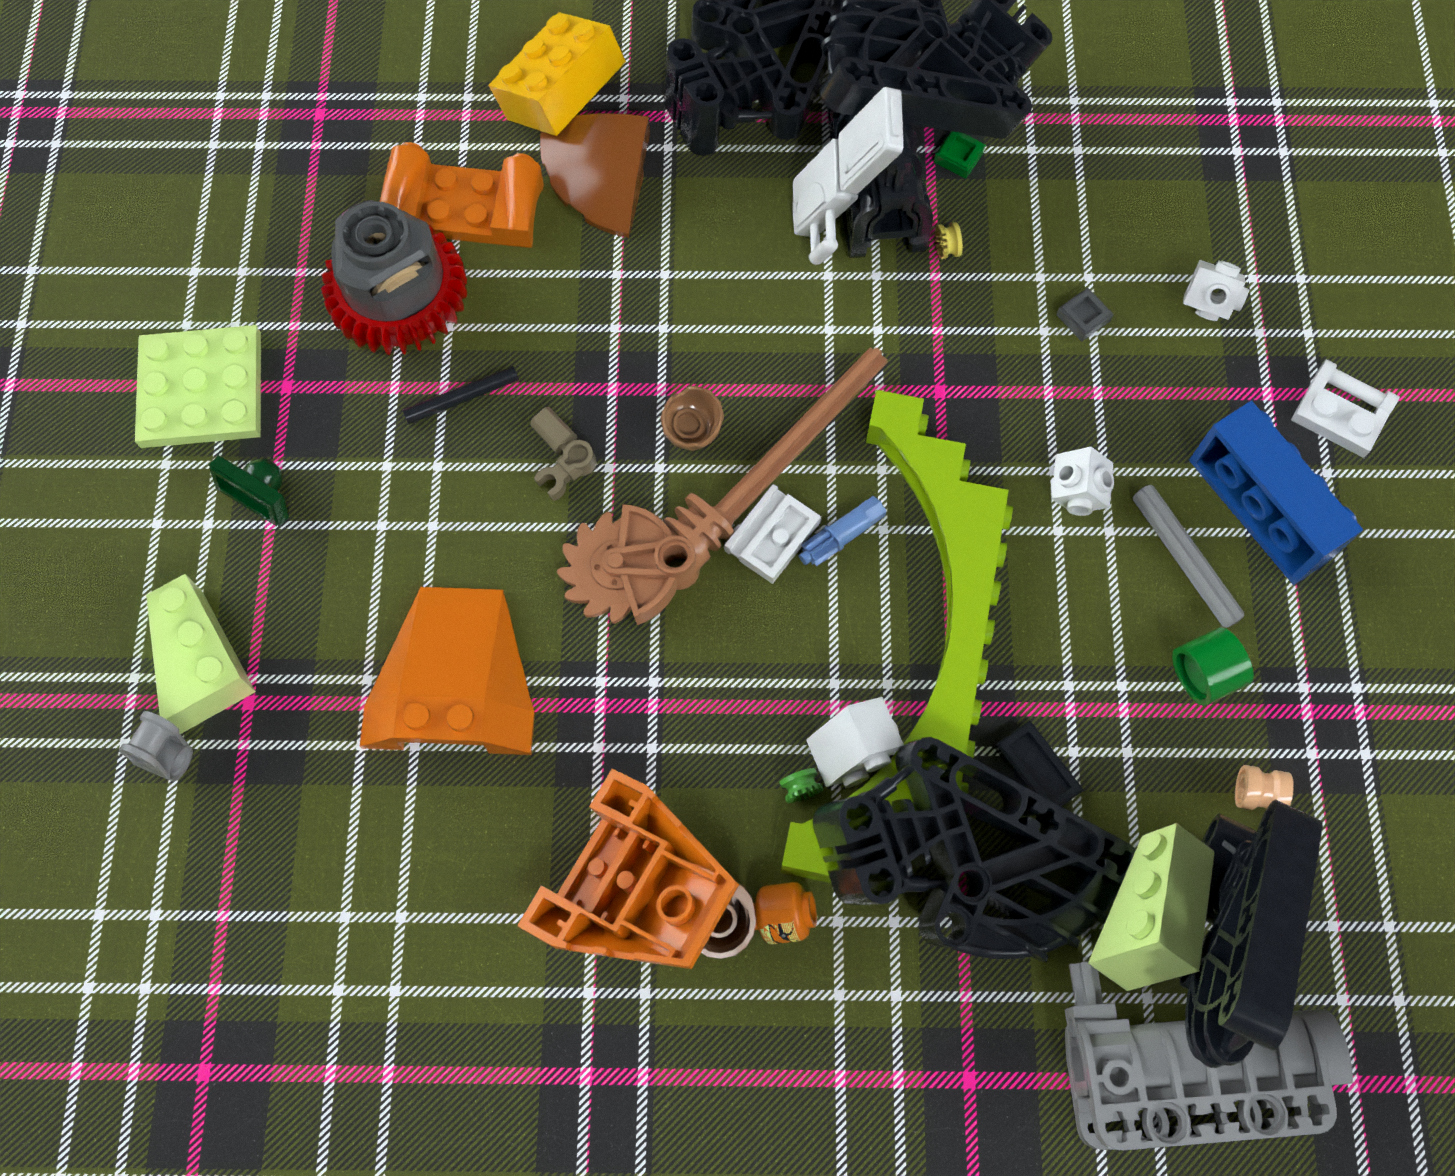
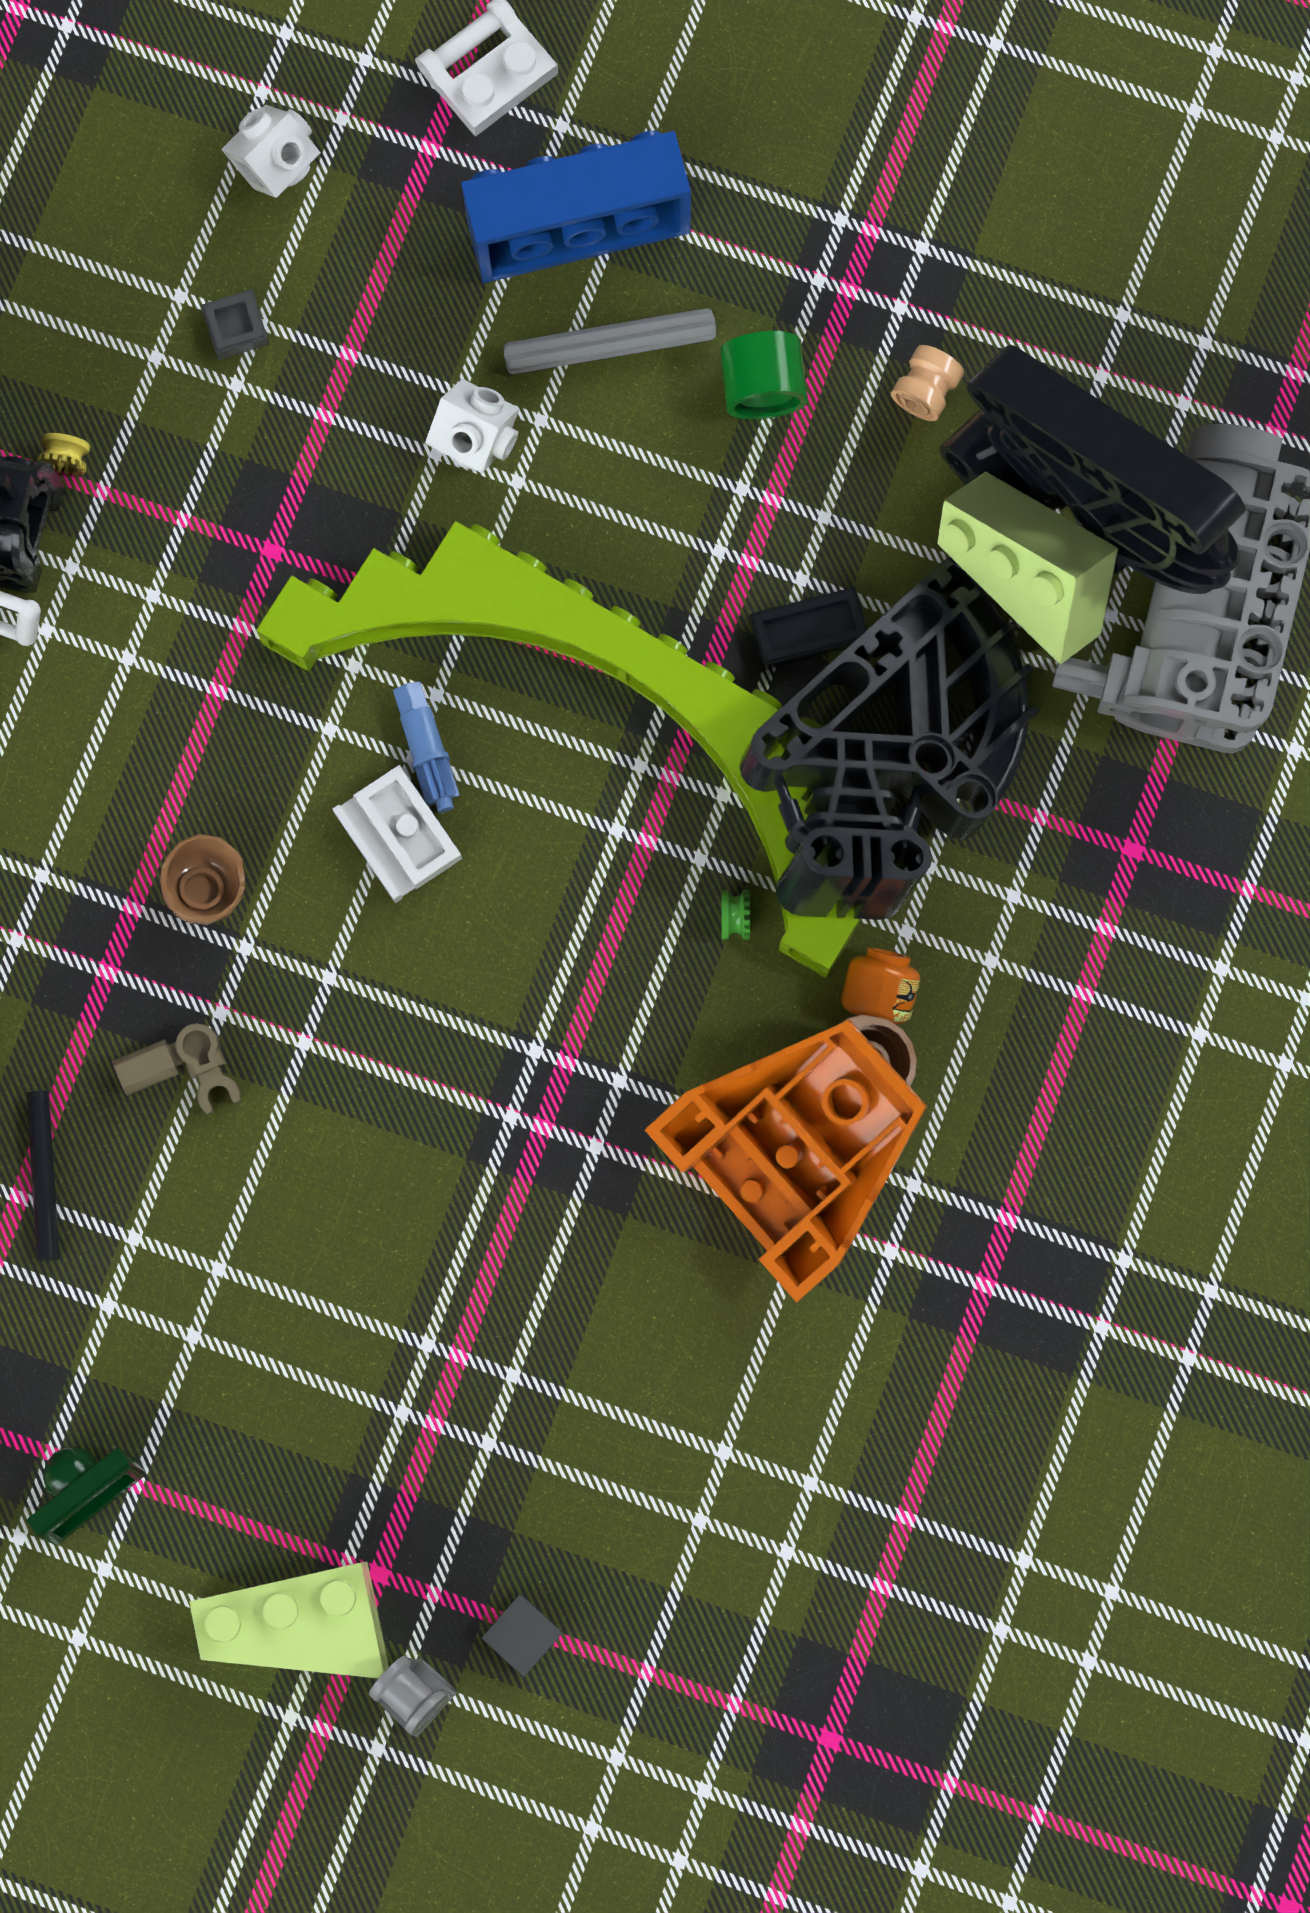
camera: 70 degrees left, 10 degrees up
(226, 814) = (522, 1635): none -> dark grey tile
(452, 677) = (440, 1301): orange wedge -> none
(628, 560) = (365, 1033): nougat piece -> none
(855, 743) = (714, 829): white brick -> none

